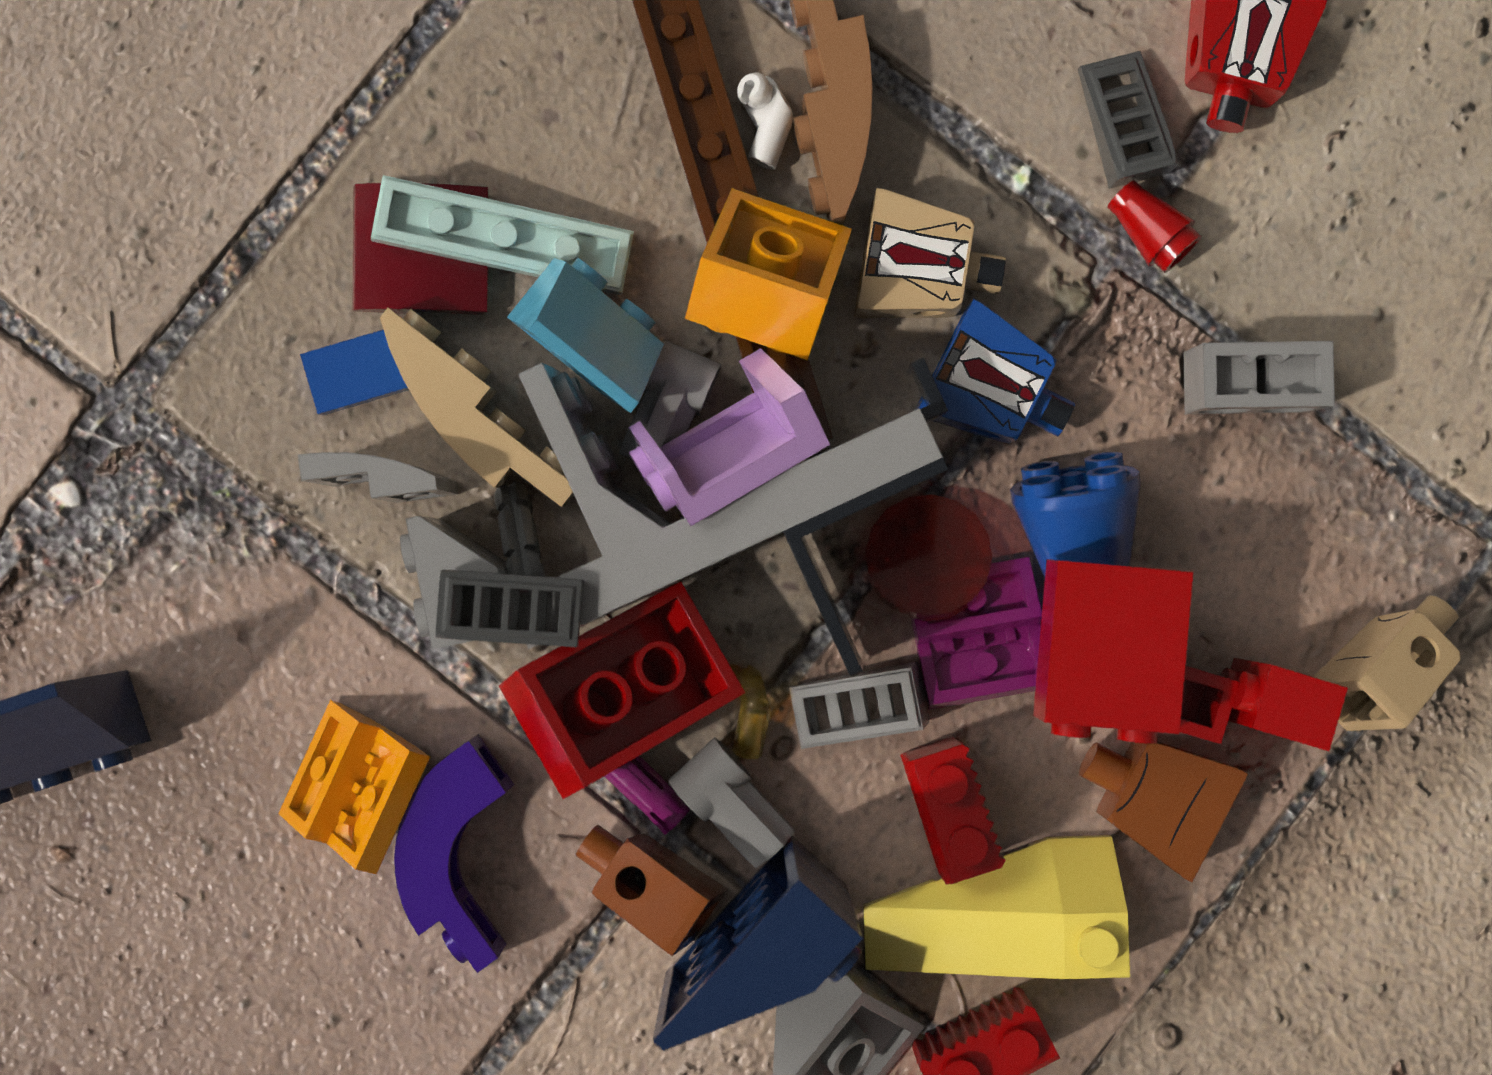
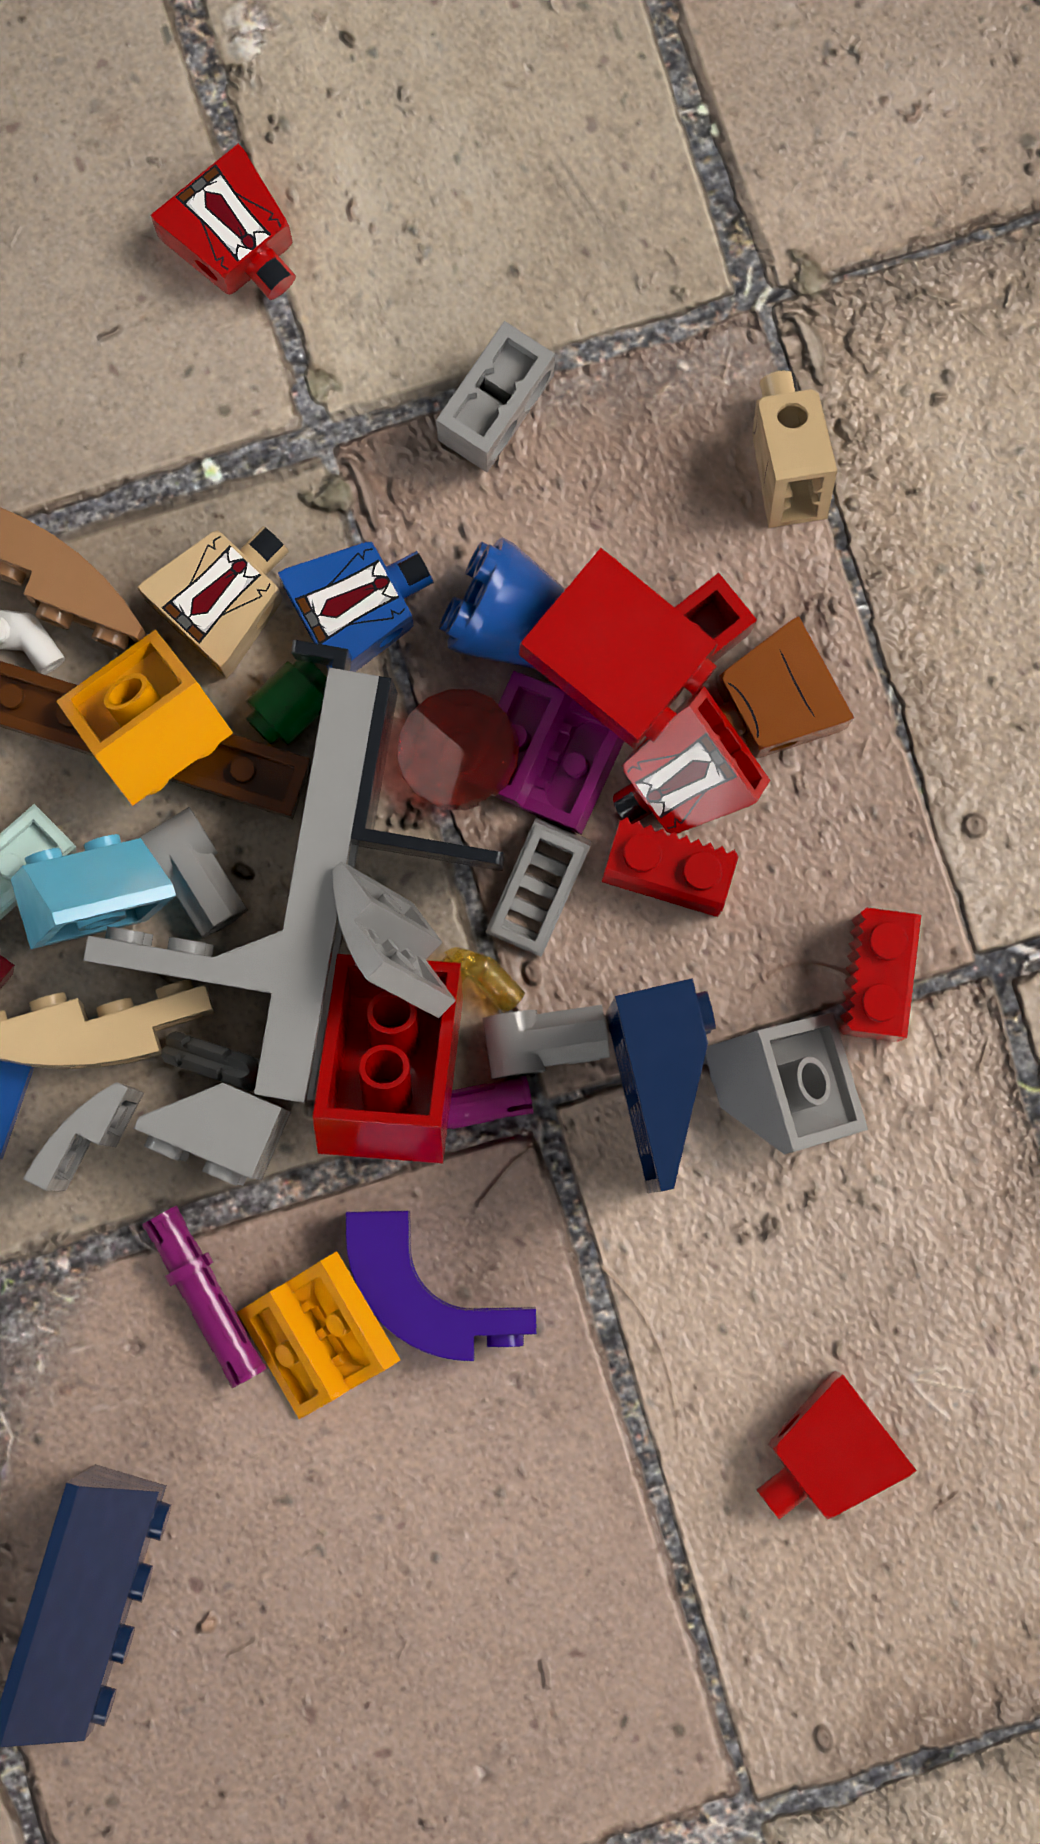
camera: 55 degrees left, 5 degrees down
(332, 644) = (201, 1291): none -> magenta pin
(451, 600) = (228, 1135): dark grey slope -> none
(676, 893) = (587, 1140): dark orange torso -> none
(717, 625) = (389, 940): none -> light grey slope
(733, 448) = (261, 833): lavender panel -> none
(869, 385) = (287, 701): none -> dark green brick
(1041, 915) = (791, 871): light yellow wedge -> none
(1046, 779) = (691, 771): none -> red torso
(1155, 131) = (255, 391): dark grey slope -> none
(1155, 227) = (324, 394): red cone -> none
(1285, 702) = (761, 551): red brick -> none

